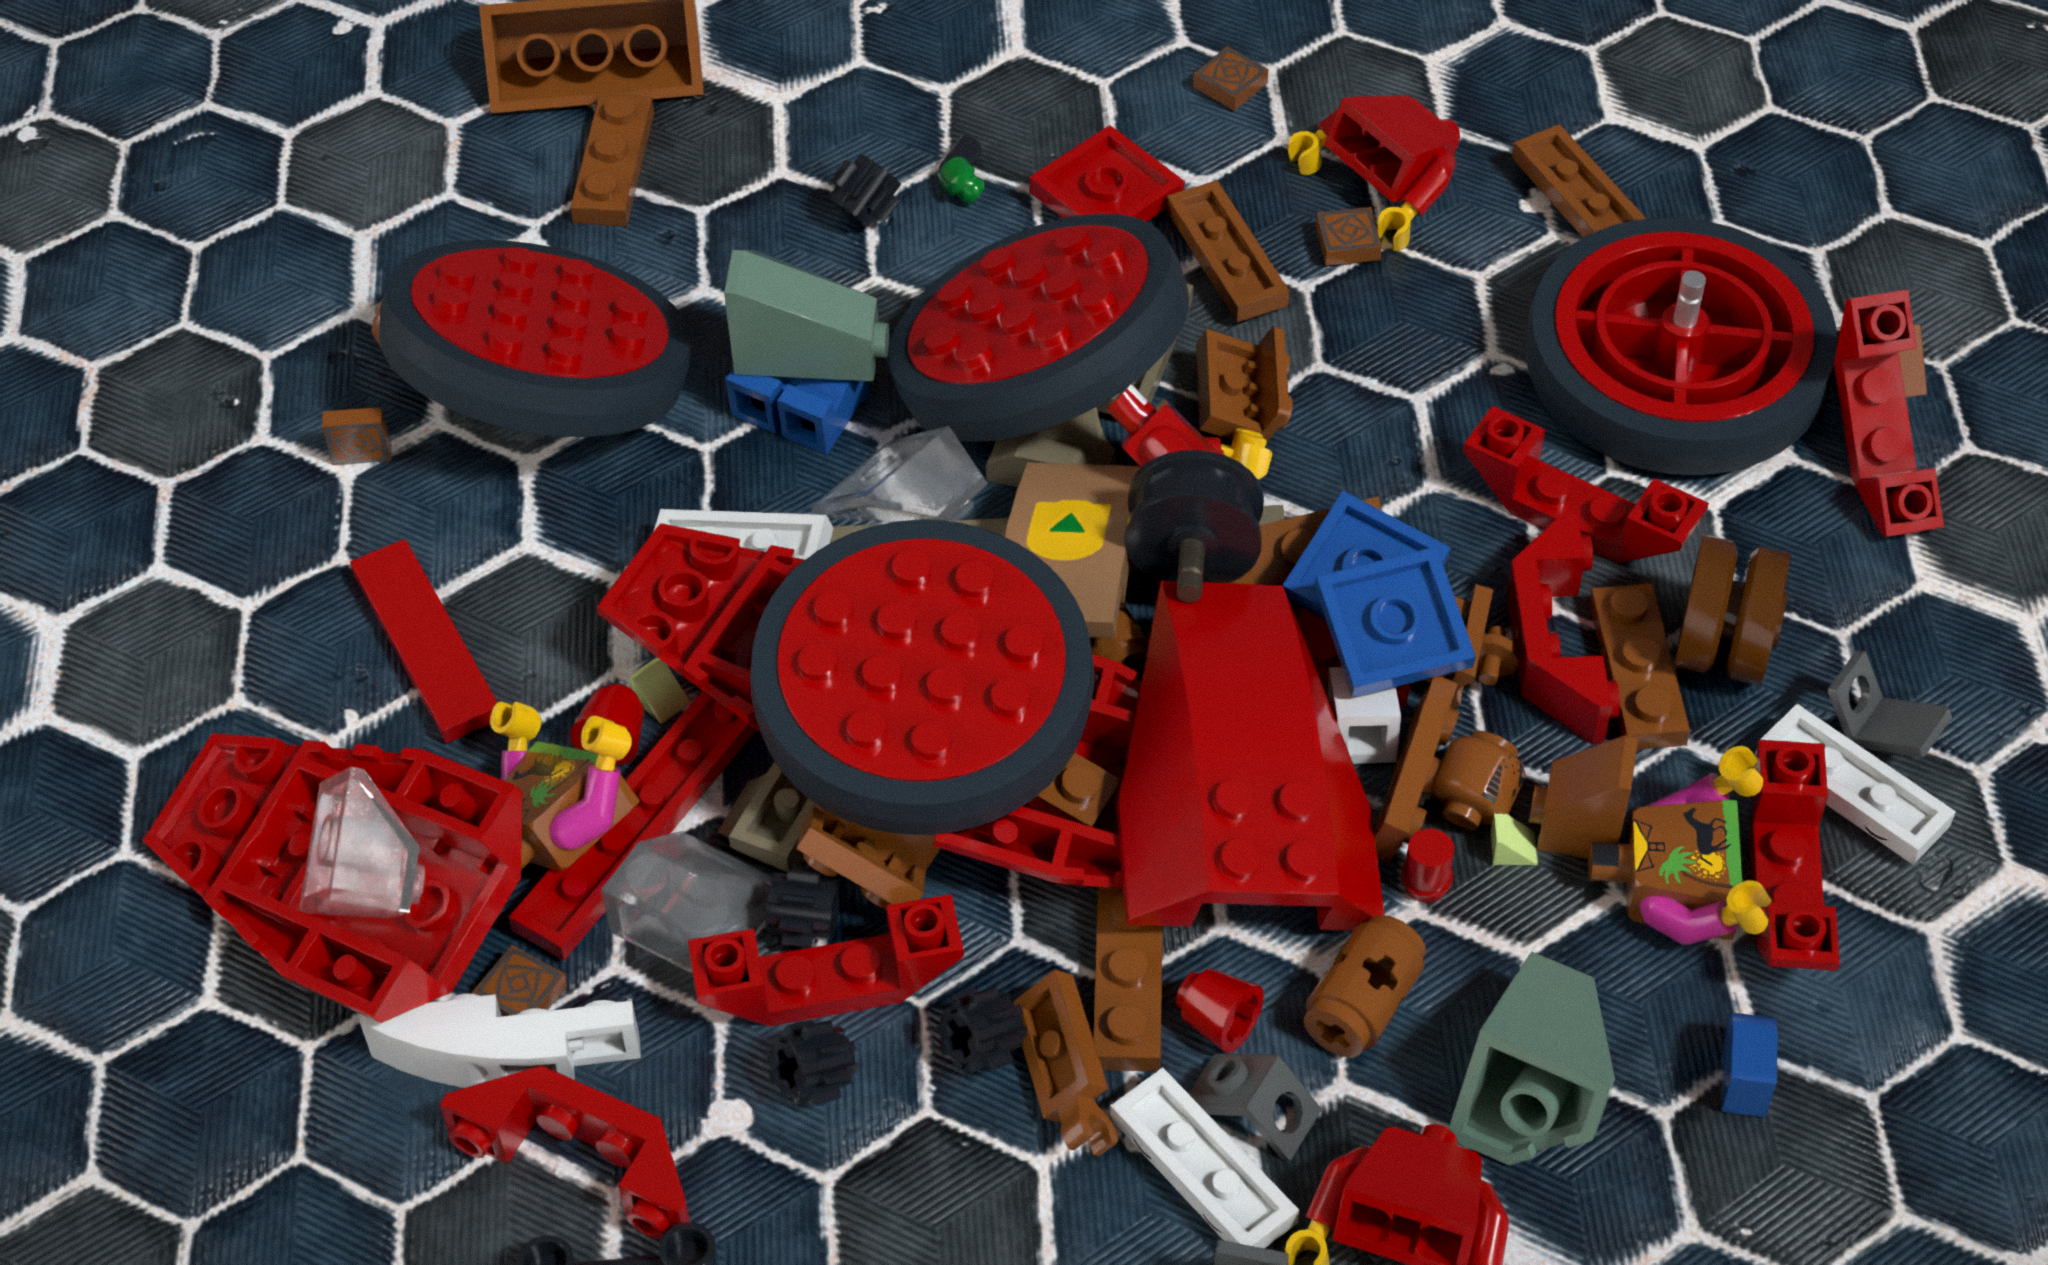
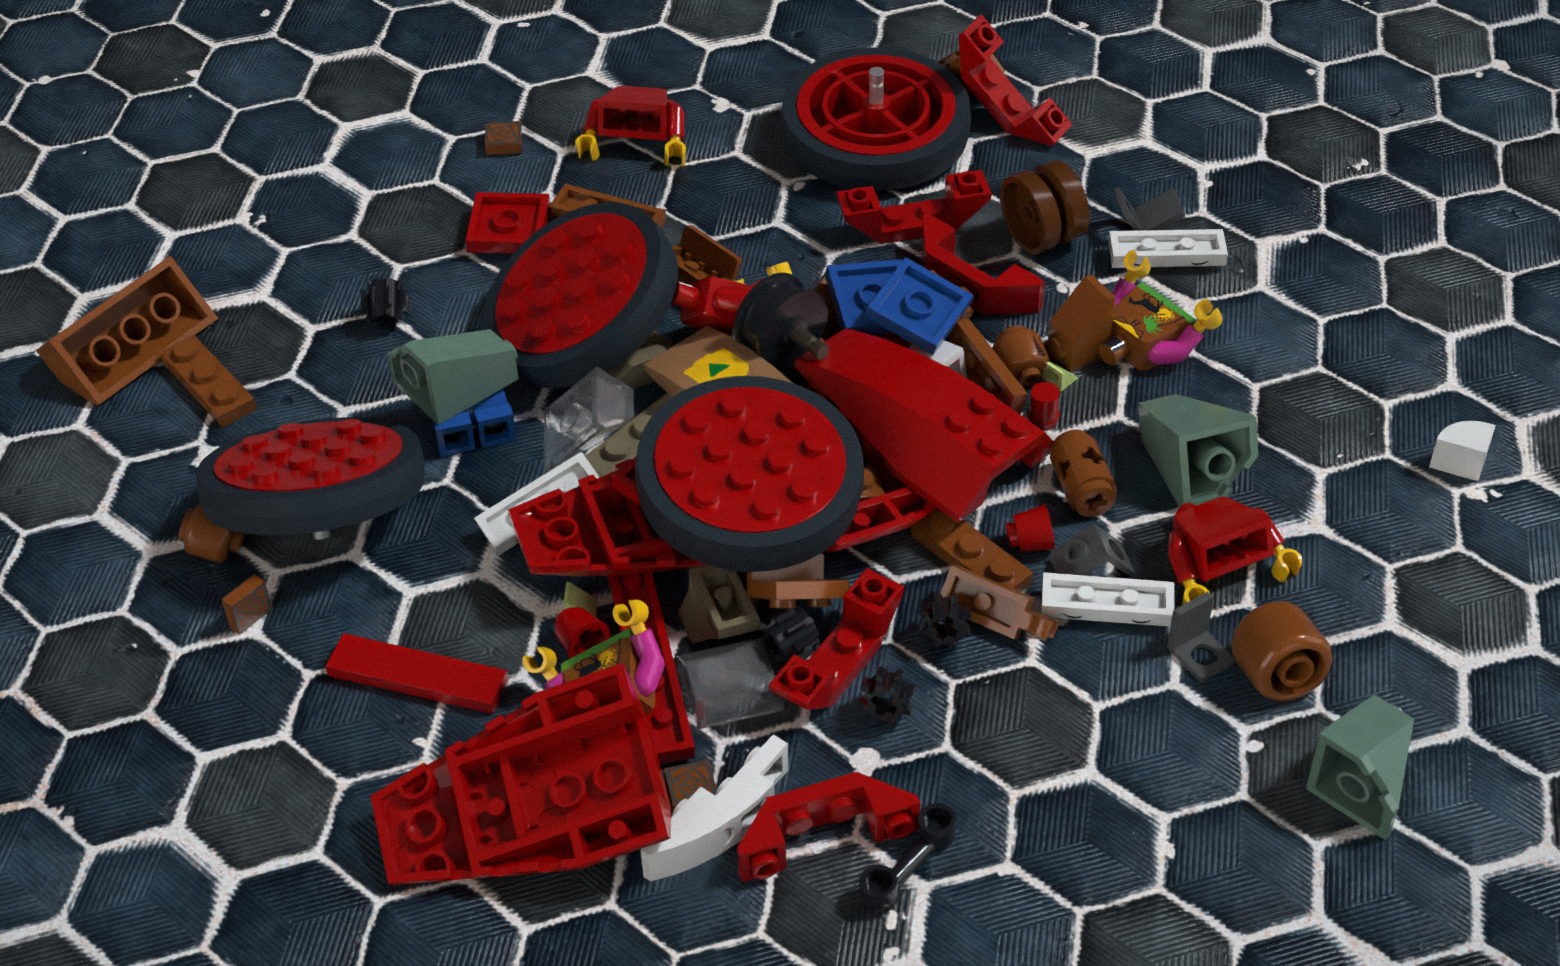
camera: 45 degrees left, 5 degrees down
(359, 853) = (551, 770): clear slope -> none
(957, 171) = (419, 266): green arm -> none
(1348, 236) = (655, 172): dark orange tile -> none
(1573, 181) = (739, 83): dark orange plate -> none
(1641, 663) = (999, 253): dark orange plate -> none
(1749, 1064) = (1268, 385): blue piece -> none
(1788, 856) = (1236, 311): red slope -> none

